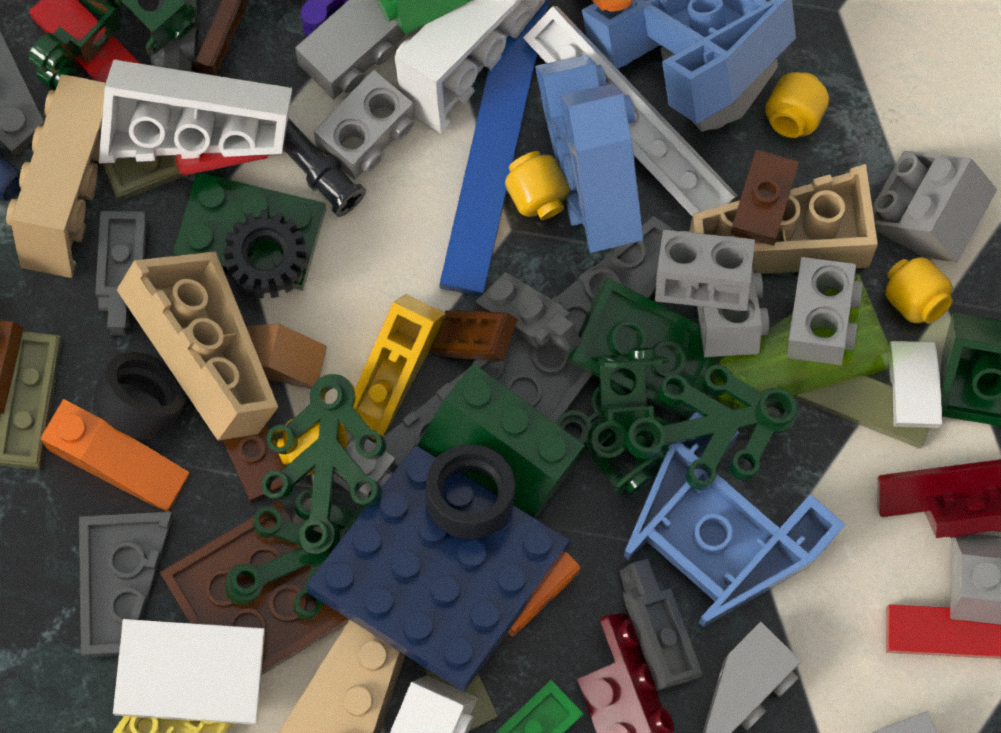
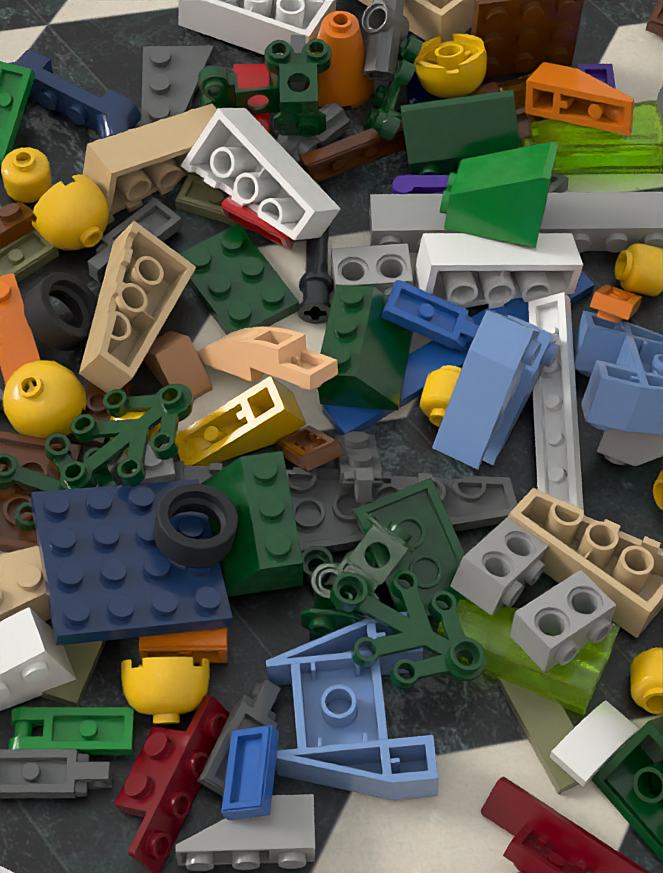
camera: 45 degrees right, 15 degrees down
(56, 296) = (72, 214): none -> yellow cylinder
(226, 478) = (43, 399): none -> yellow cylinder
(258, 229) = (221, 275): black tyre -> none
(366, 279) = (269, 351): none -> light nougat slope
(431, 202) = (368, 351): none -> dark green slope
(464, 124) = (430, 316): none -> blue hinge
(561, 639) = (165, 686): none -> yellow cylinder
(702, 649) = (250, 773): none -> blue tile
(704, 270) = (499, 519): light grey brick -> none
(764, 197) = (594, 515): reddish brown plate -> none

